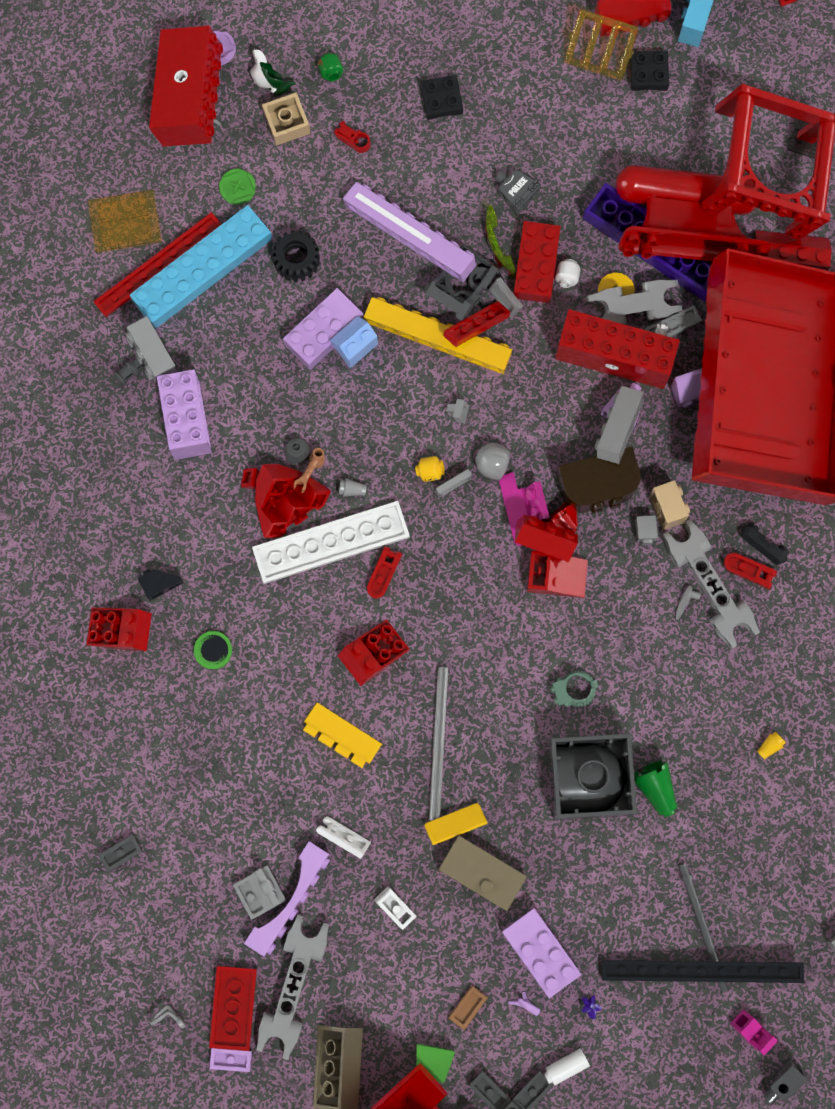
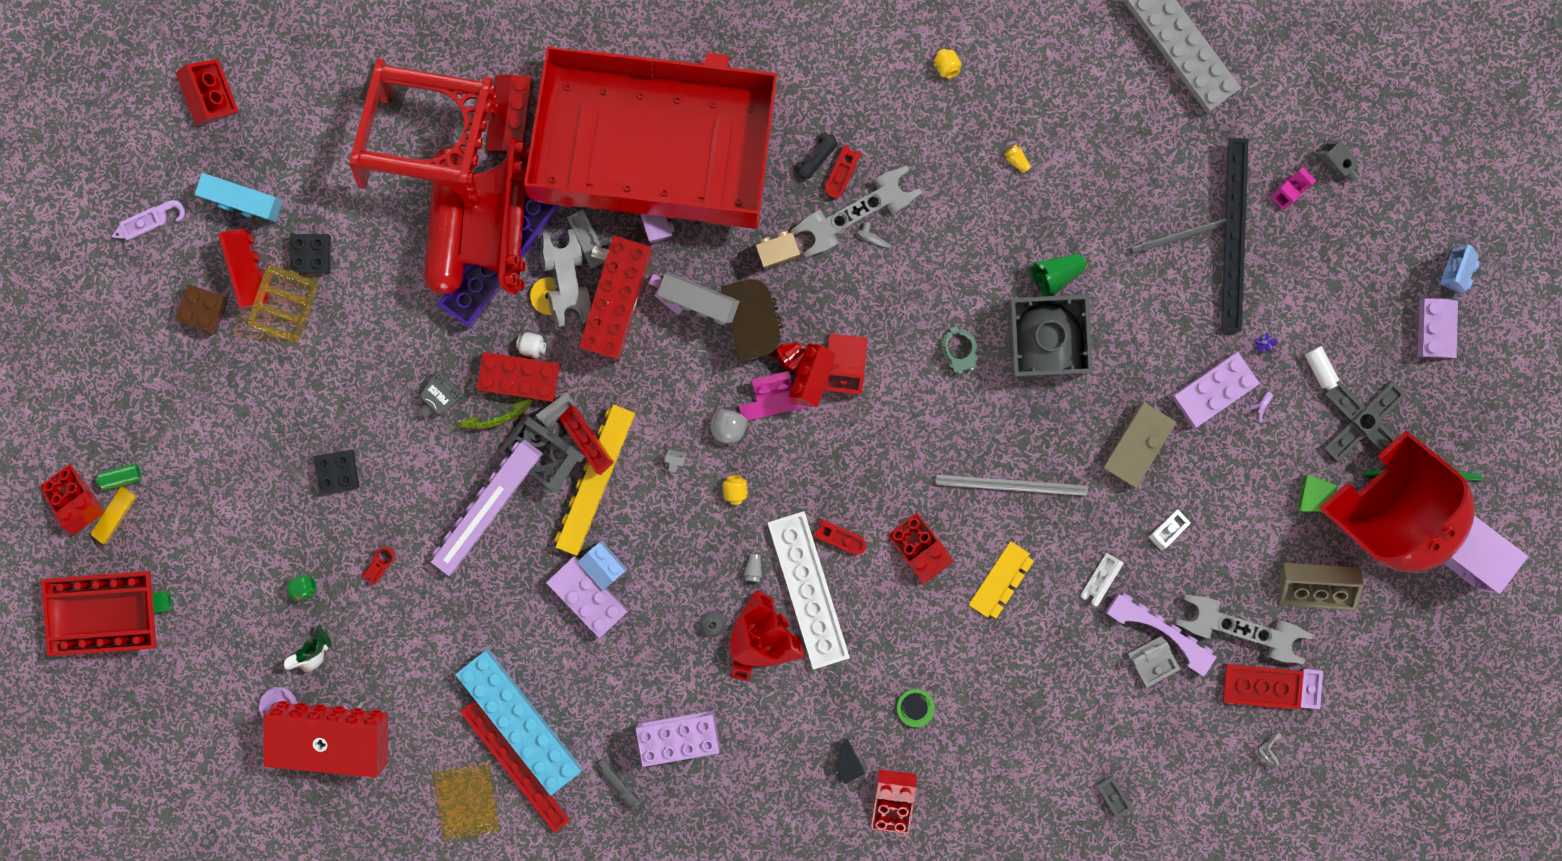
camera: 85 degrees left, 10 degrees up
(149, 349) = (612, 774): light grey brick -> none
(237, 186) = (430, 685): bright green tile -> none
(286, 119) = (360, 634): tan brick -> none
(296, 270) = (521, 612): black tyre -> none
(316, 461) = (727, 606): nougat brick -> none
(453, 483) = (750, 466): light grey tile -> none
(455, 823) = (1090, 470): yellow slope -> none
(467, 1007) = (1264, 461): medium nougat tile -> none
(646, 529) = (800, 274): light grey brick -> none

